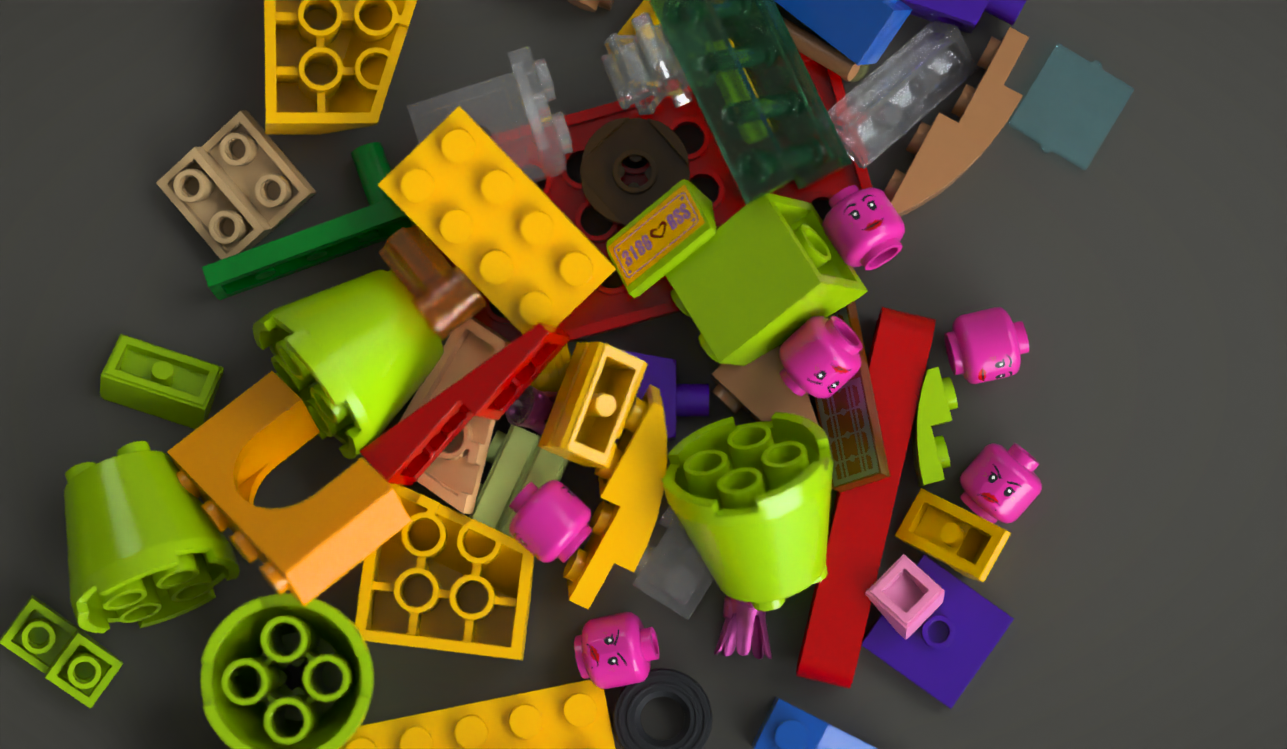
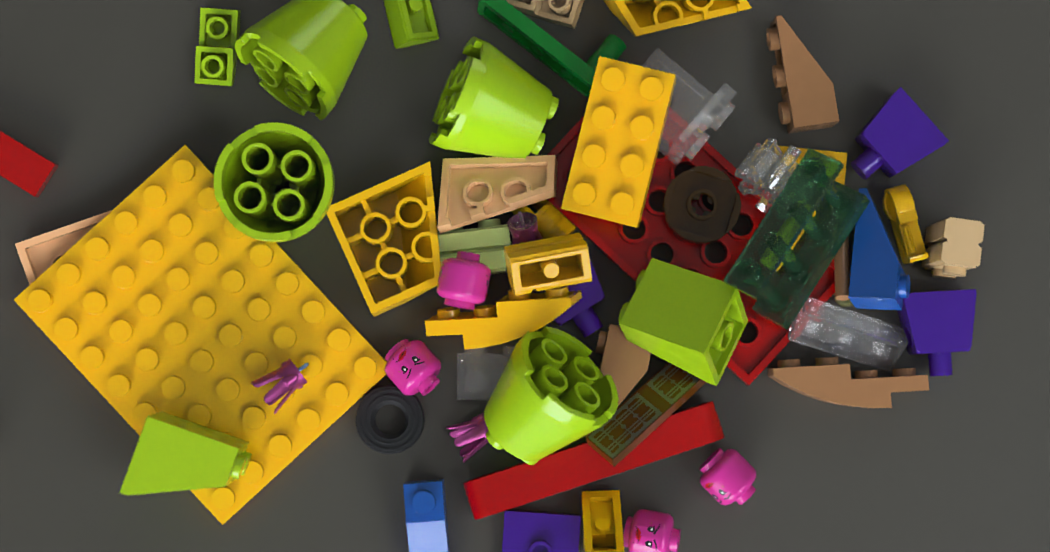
camera: 60 degrees right, 0 degrees up
(299, 544) = (362, 144): light orange arch -> none
(437, 289) = (559, 130): clear orange piece -> none
(486, 392) = (517, 196): red slope -> none
(662, 237) = (673, 244): slope -> none
(820, 357) = (659, 381): dark pink head -> none
(864, 227) = (753, 360): dark pink head -> none
(905, 596) = (549, 519): bright pink slope -> none
(933, 409) = (670, 468): lime slope -> none
(1071, 106) = (902, 441): clear light blue piece -> none

